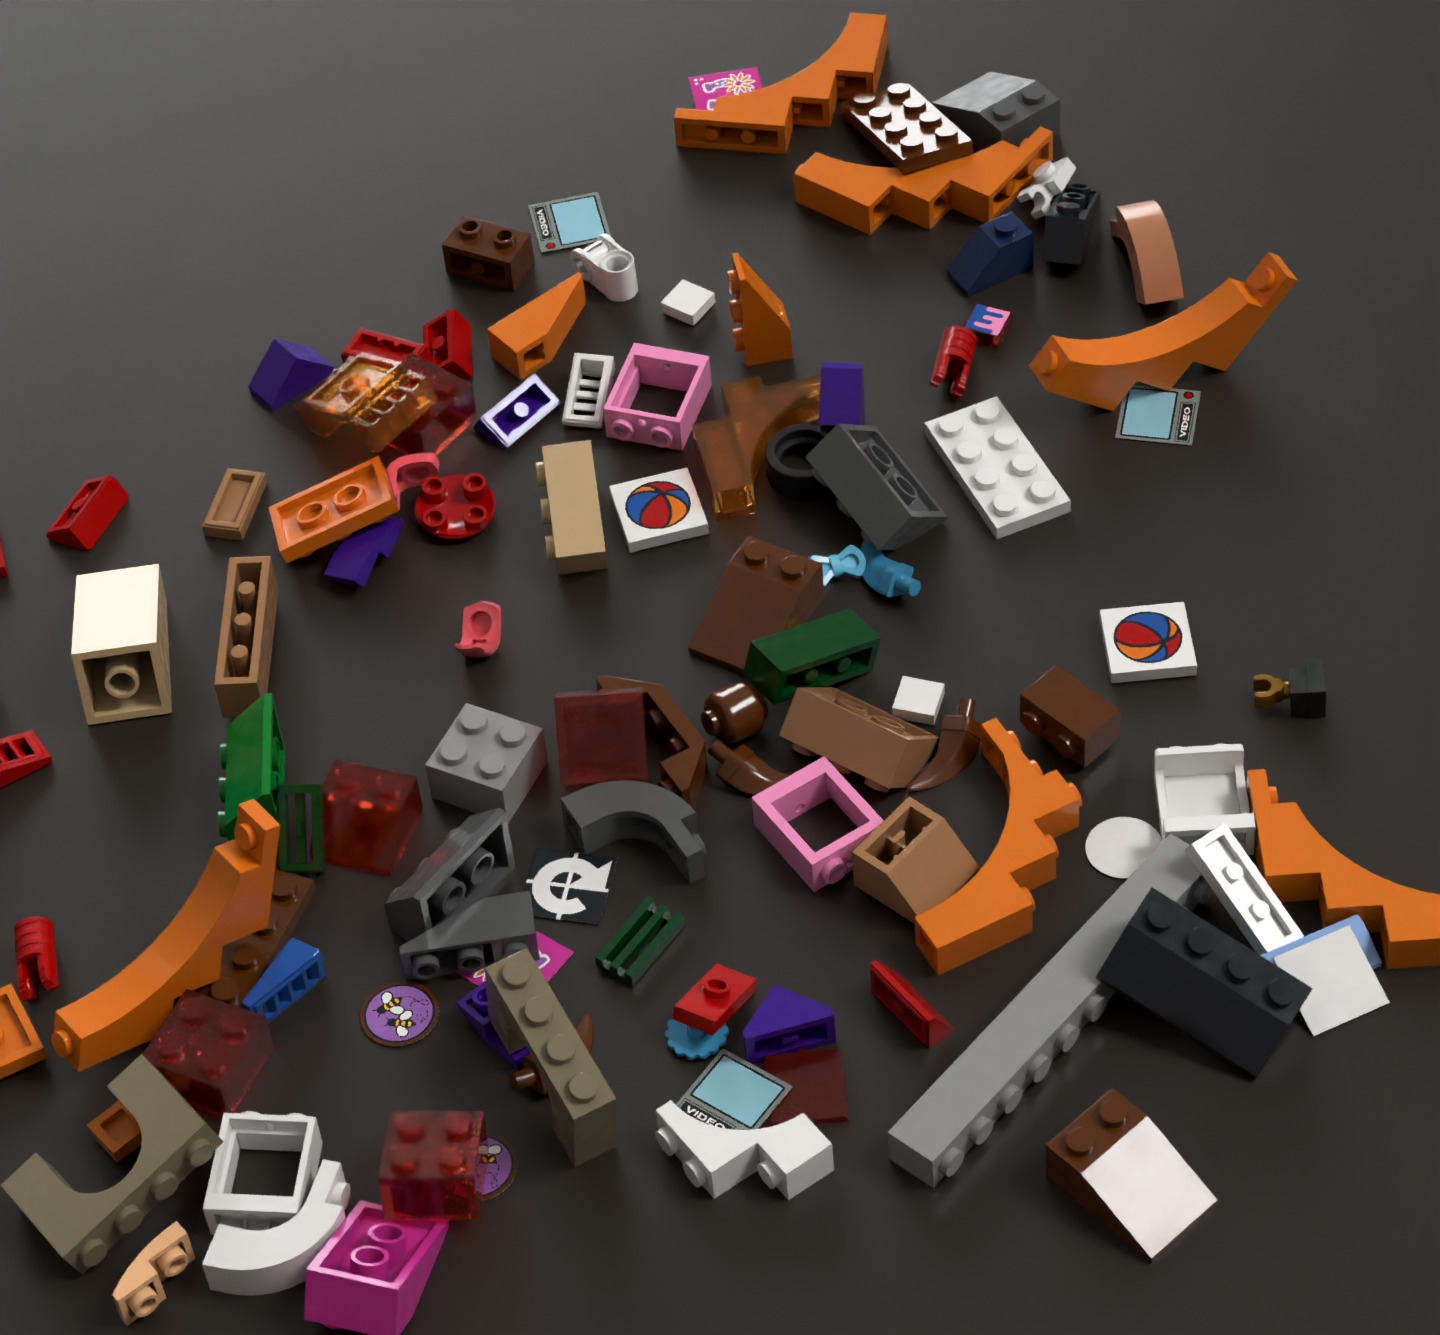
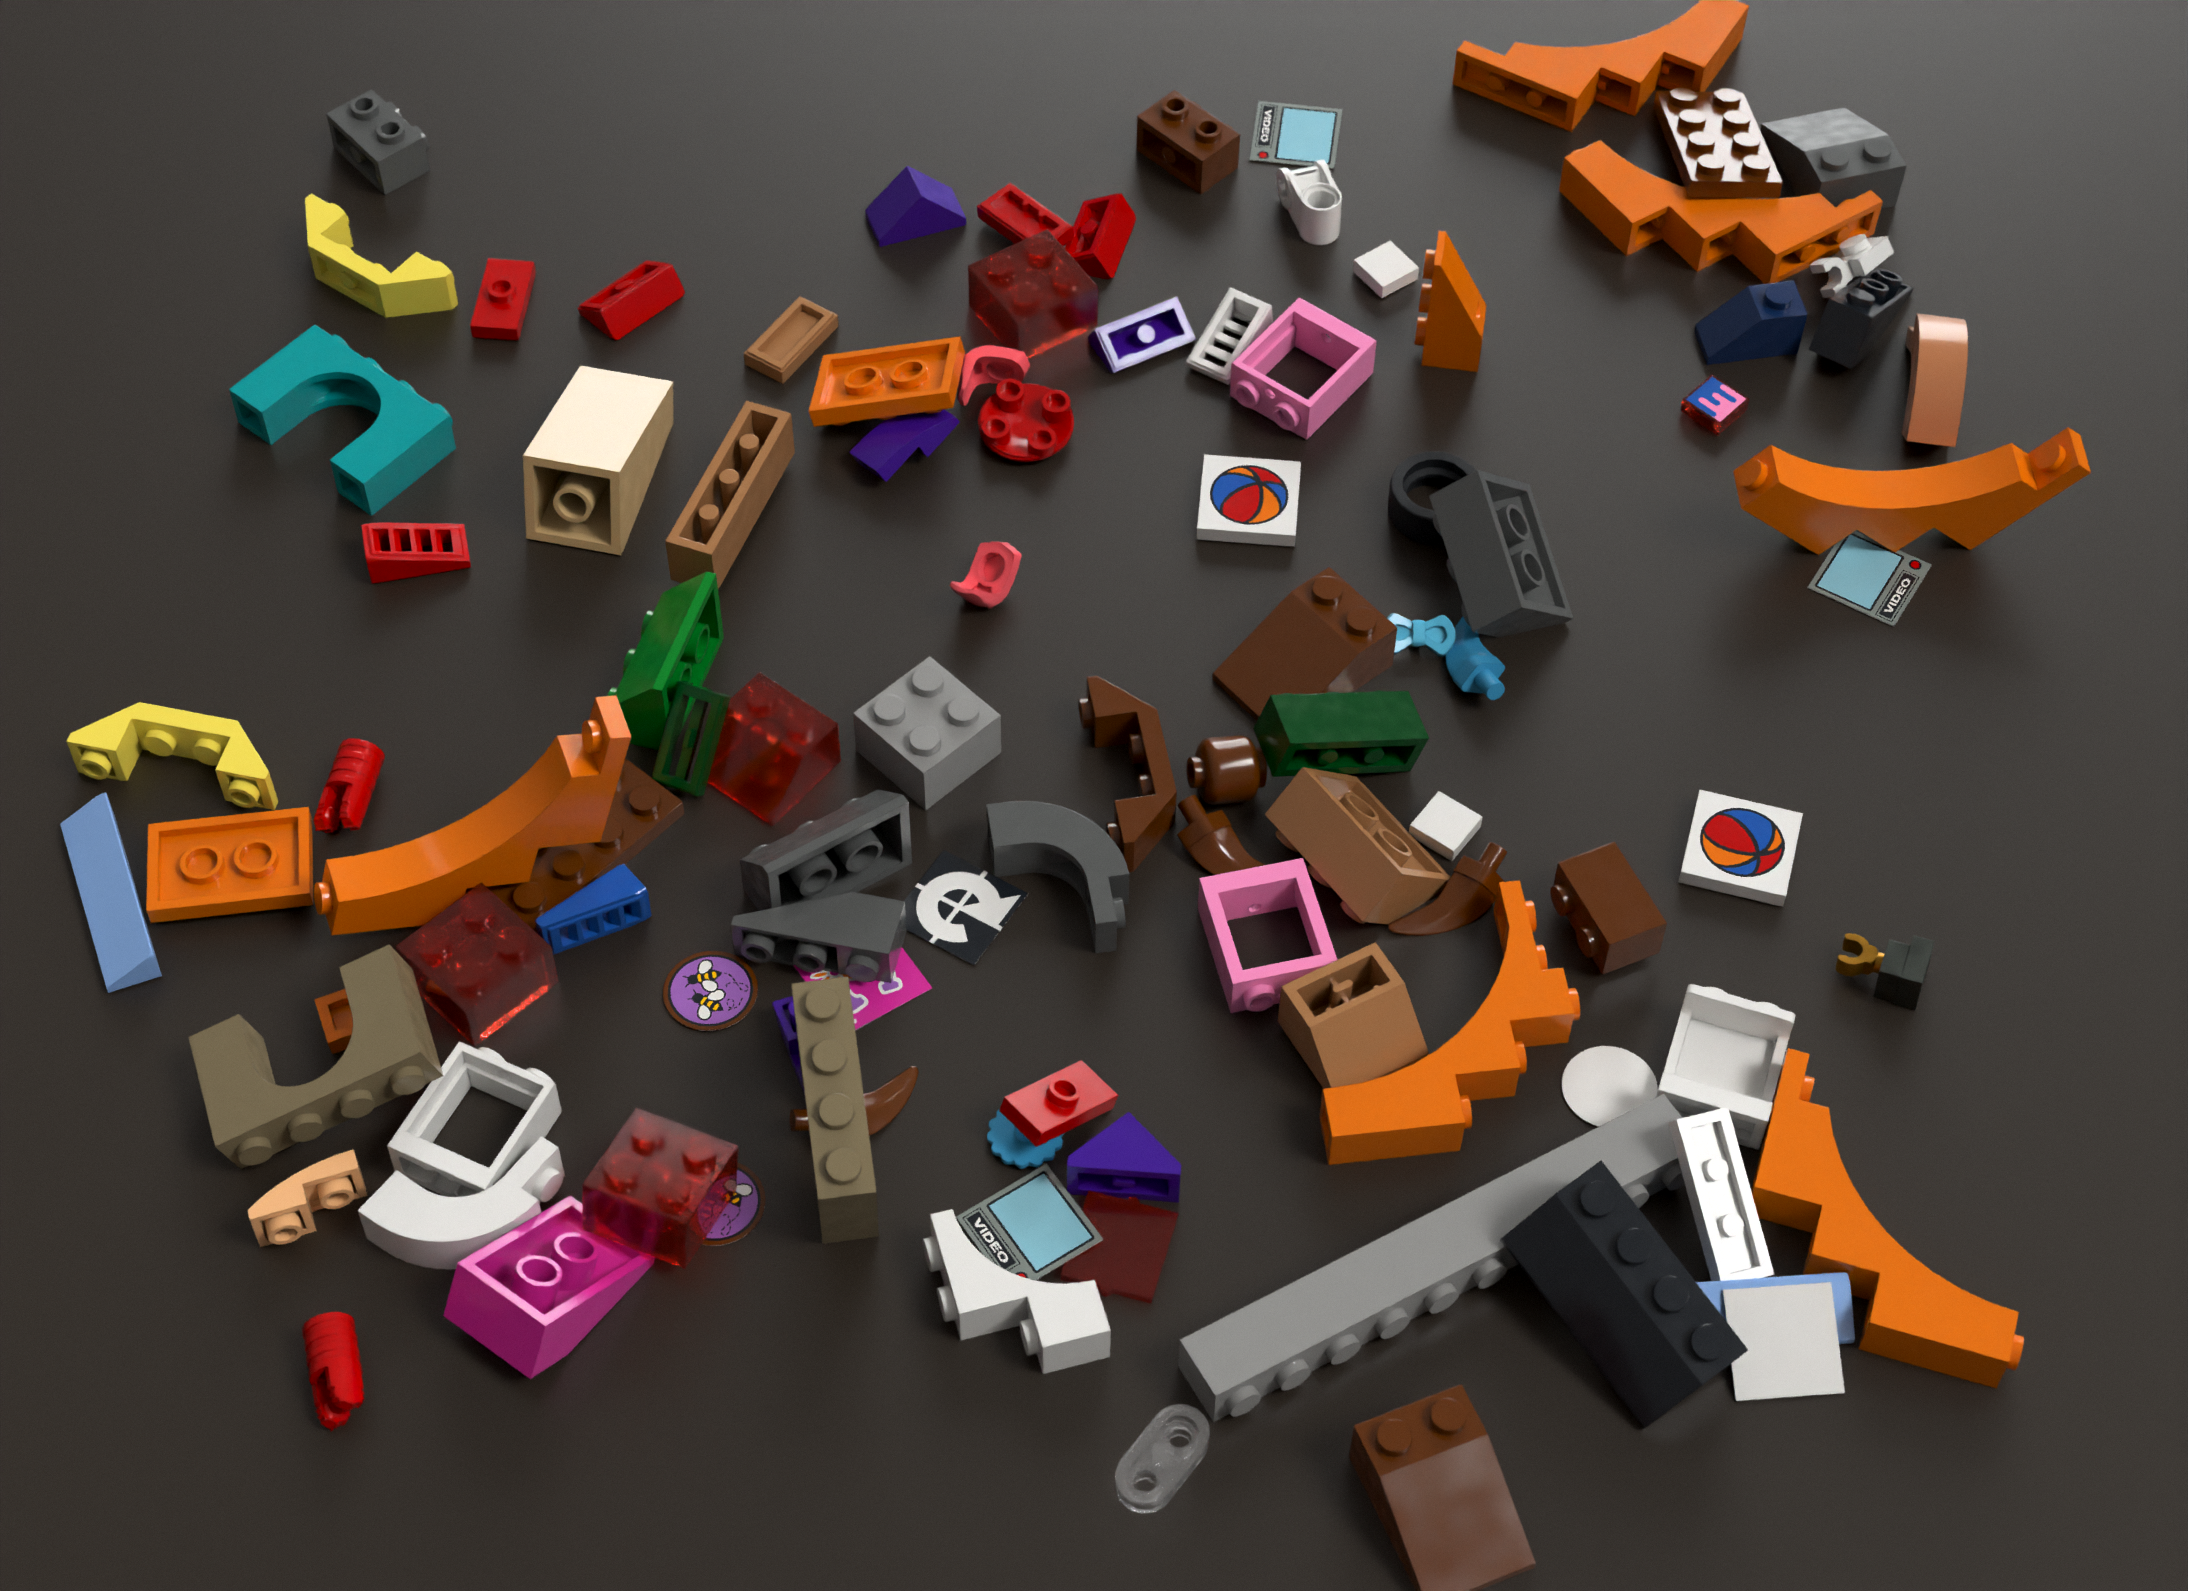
camera: 15 degrees right, 5 degrees up
(372, 396) = (976, 269): clear orange plate -> none
(536, 331) = (1202, 248): orange slope -> none
(572, 507) = (1149, 467): tan wedge -> none
(602, 735) = (1063, 747): clear red brick -> none
(634, 936) = (1003, 995): dark green tile -> none
(709, 87) = (1534, 30): sticker -> none
(734, 447) = (1362, 454): clear orange arch -> none
(841, 394) = (1505, 436): dark purple slope -> none
(908, 1005) = (1278, 1189): red slope -> none
(908, 1228) = (1159, 1461): none -> clear plate
(954, 358) = (1658, 433): red hinge -> none
(997, 467) = (1654, 578): white plate -> none

